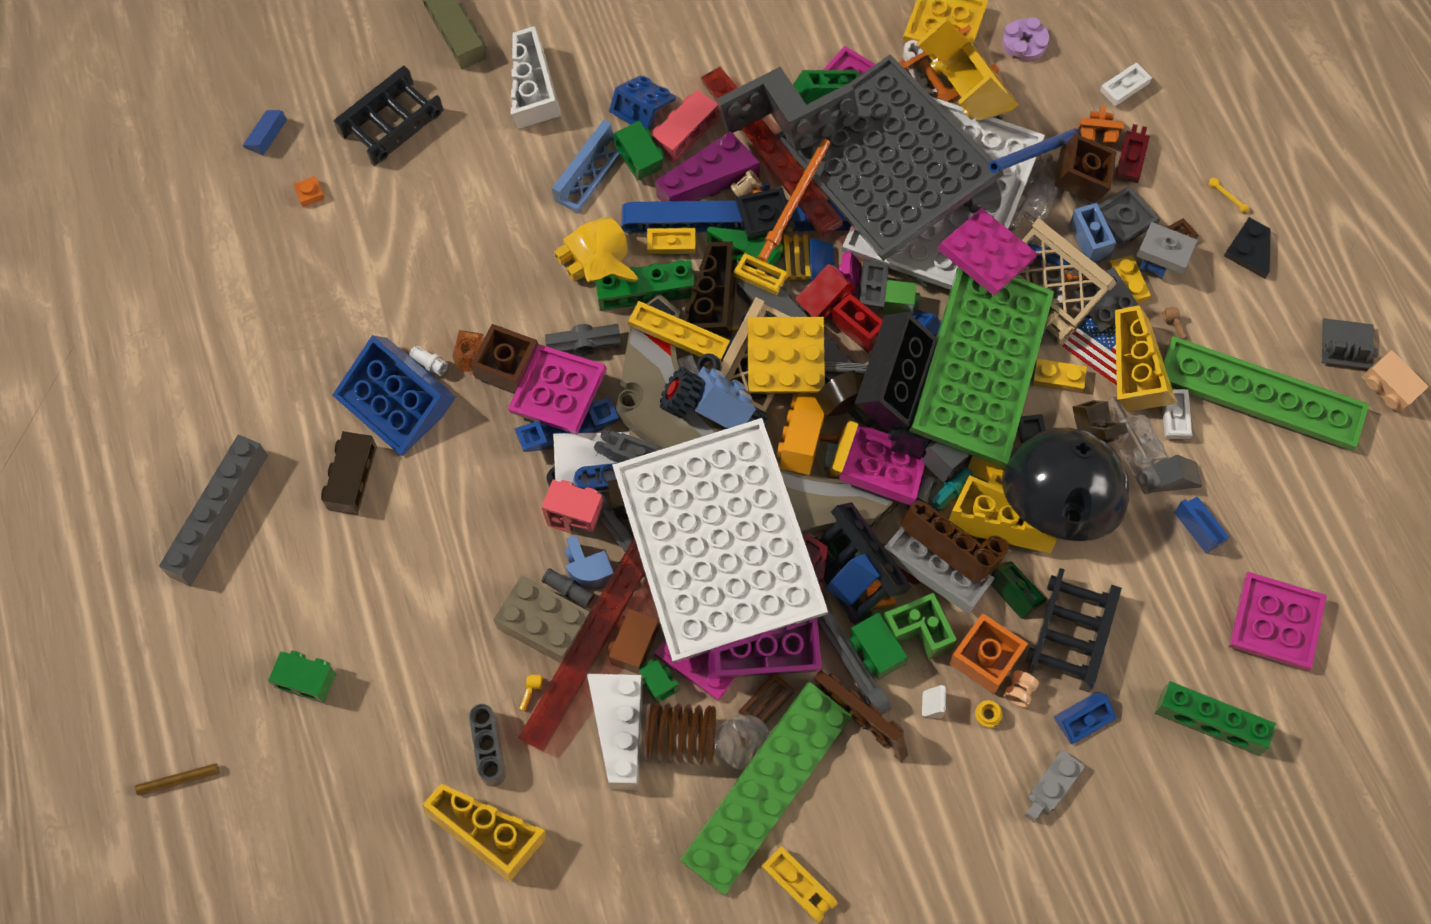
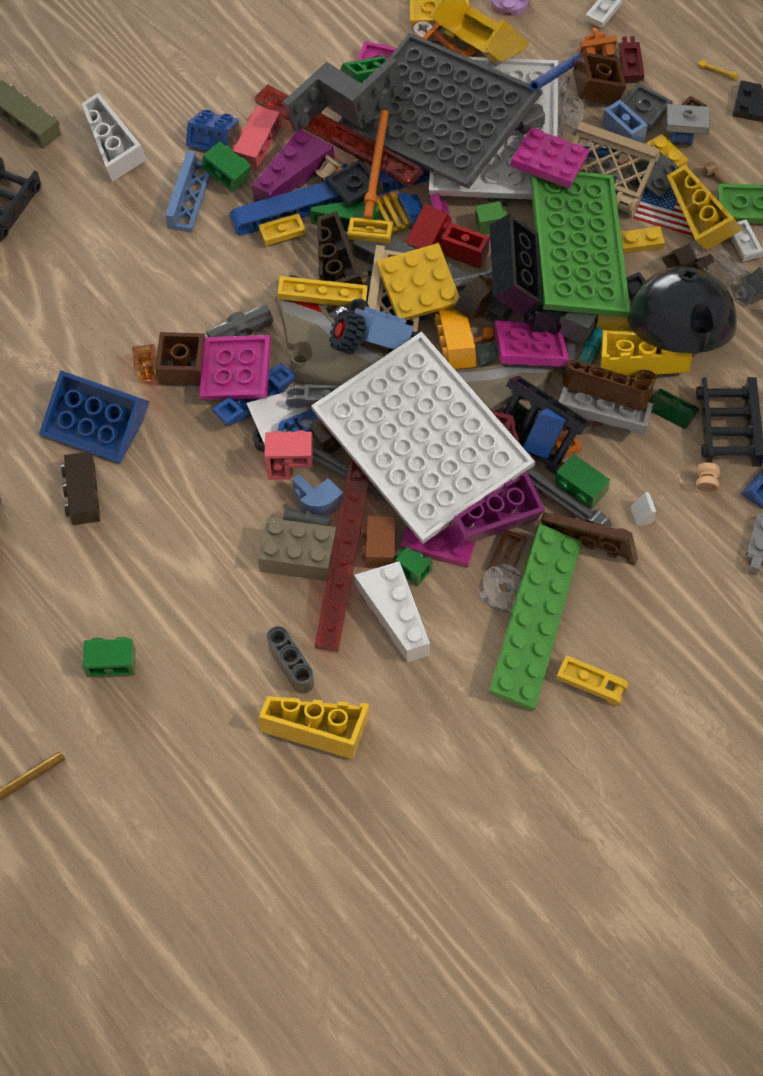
camera: 20 degrees left, 5 degrees down
(432, 362) = (115, 381): white pin -> none
(533, 682) = (308, 601): yellow hand -> none
(596, 251) = (223, 252): yellow hips -> none
(670, 280) = (264, 271): green brick -> none
(705, 722) = (422, 585): reddish brown piece -> none
(842, 450) = (494, 342): yellow tile -> none
(873, 285) = (464, 212): dark grey hinge -> none
(925, 620) = (613, 451): bright green brick -> none
(988, 653) = (672, 458): orange brick -> none
(992, 707) = (689, 500): yellow plate -> none

